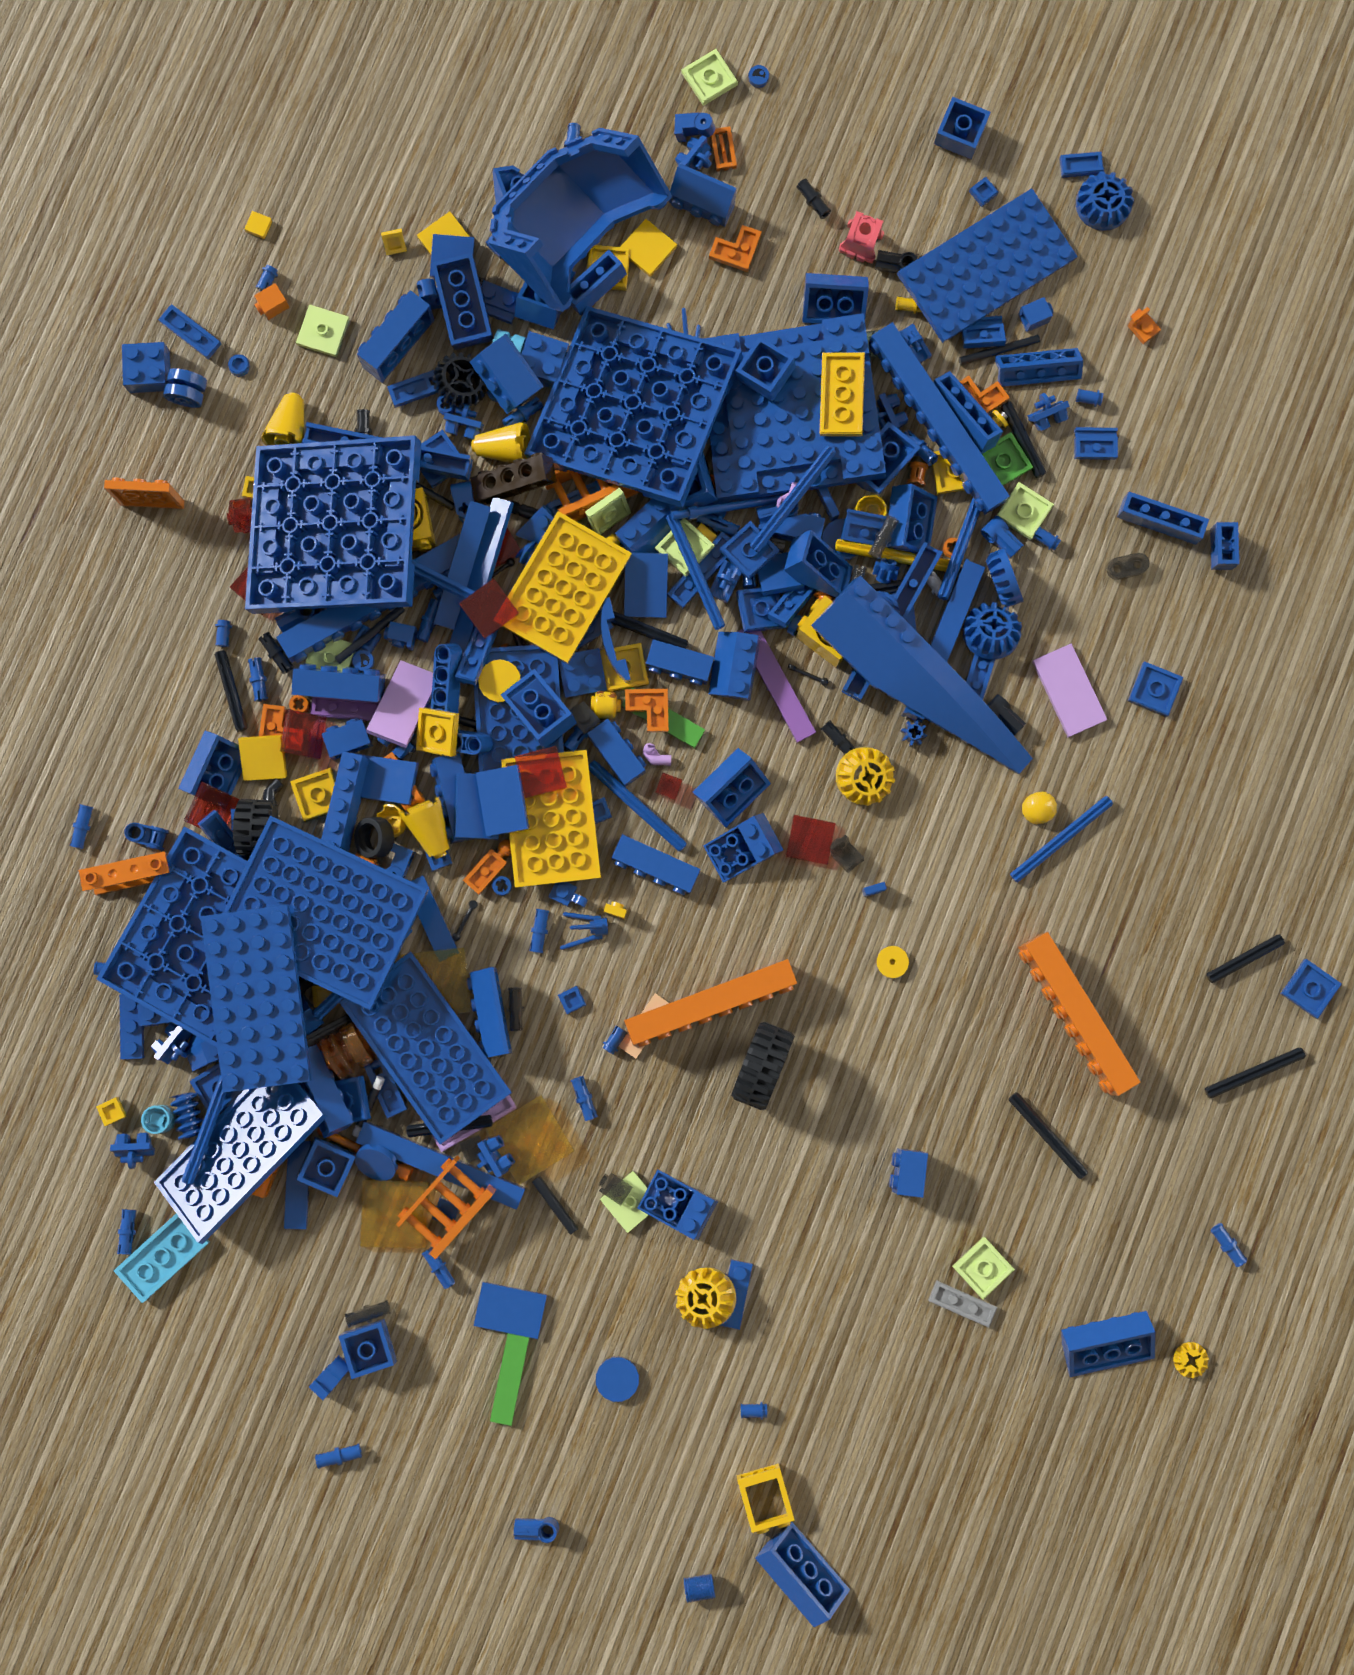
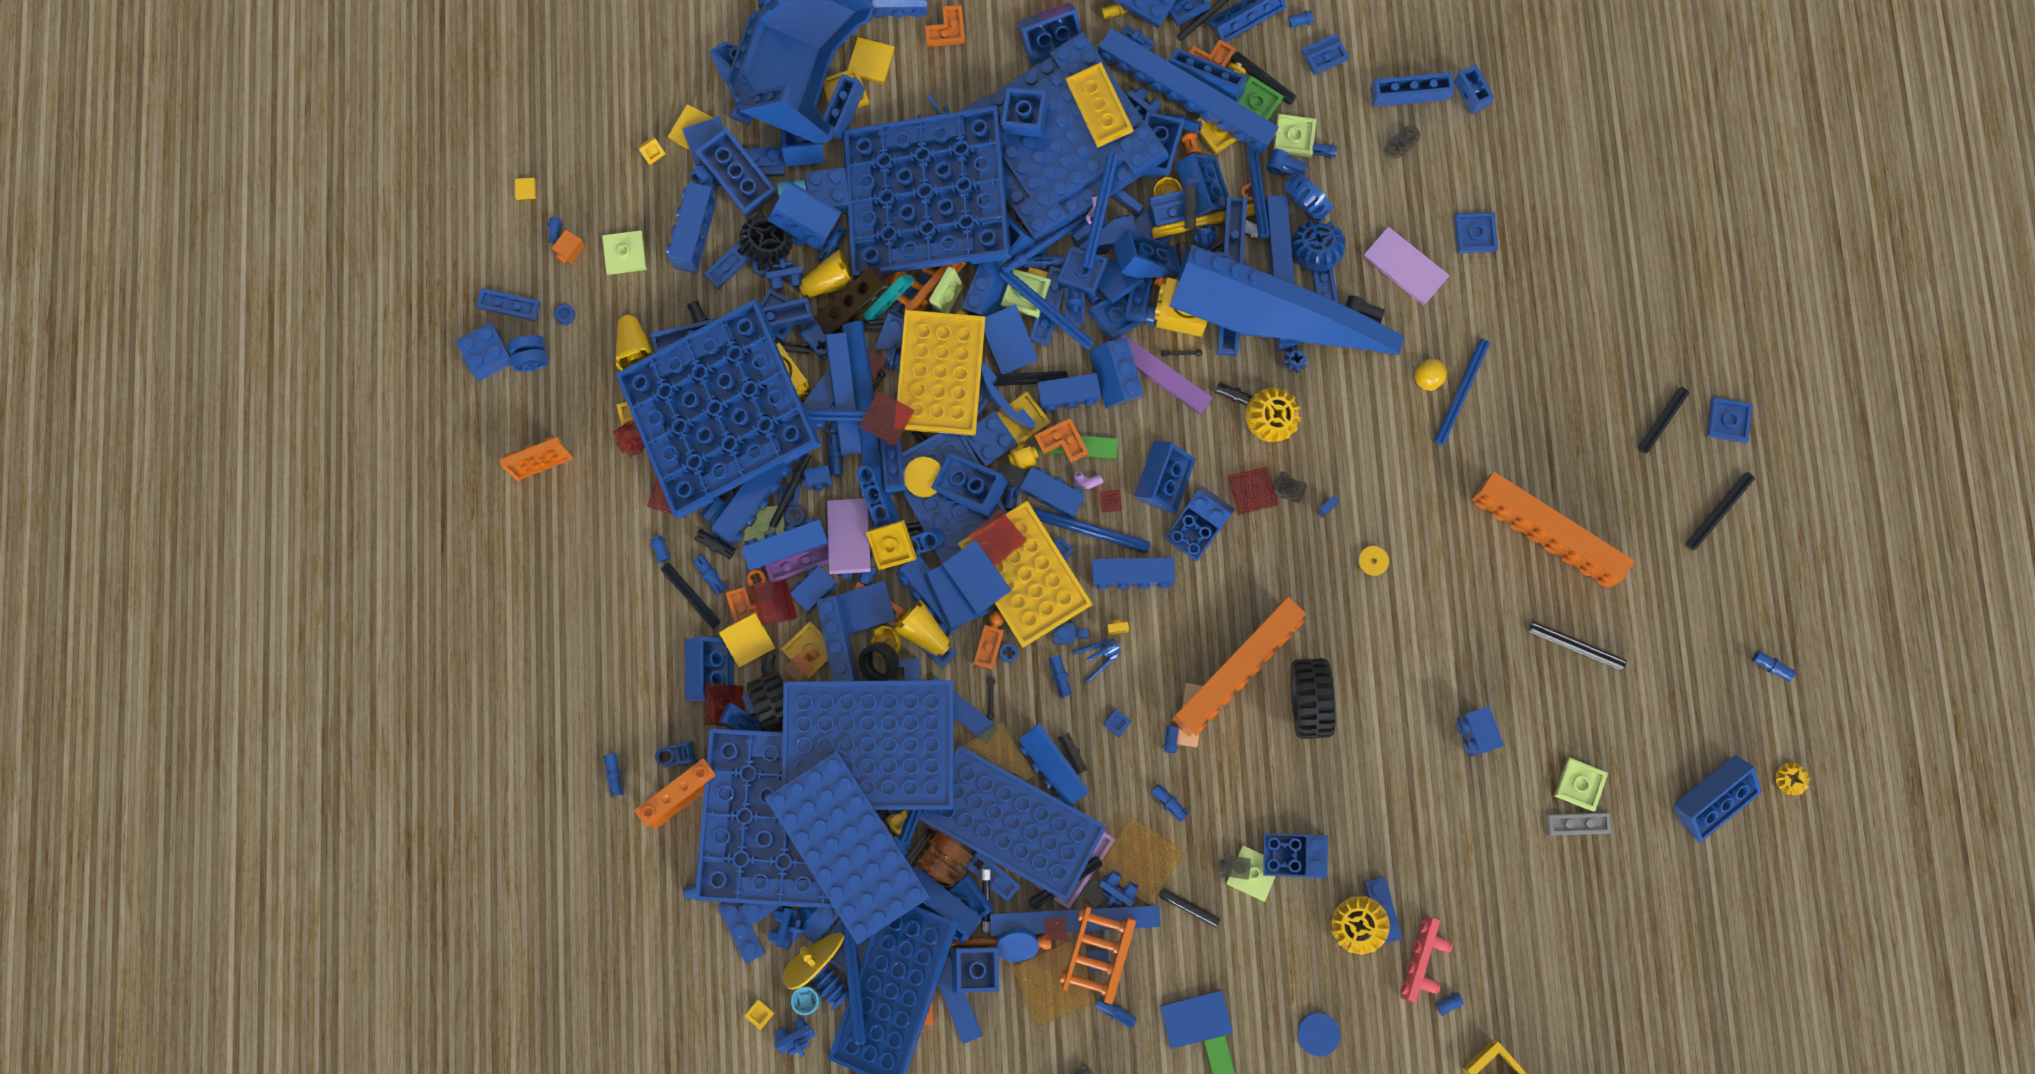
camera: 25 degrees left, 5 degrees down
(179, 1085) = (811, 961): none -> yellow shield
(300, 806) = (800, 666): none -> clear orange plate
(416, 1165) = (1055, 929): none -> clear red plate
(550, 491) = (889, 297): none -> teal tile
(741, 1361) = (1417, 966): none -> coral plate
(1057, 409) = (1280, 41): blue hips -> none

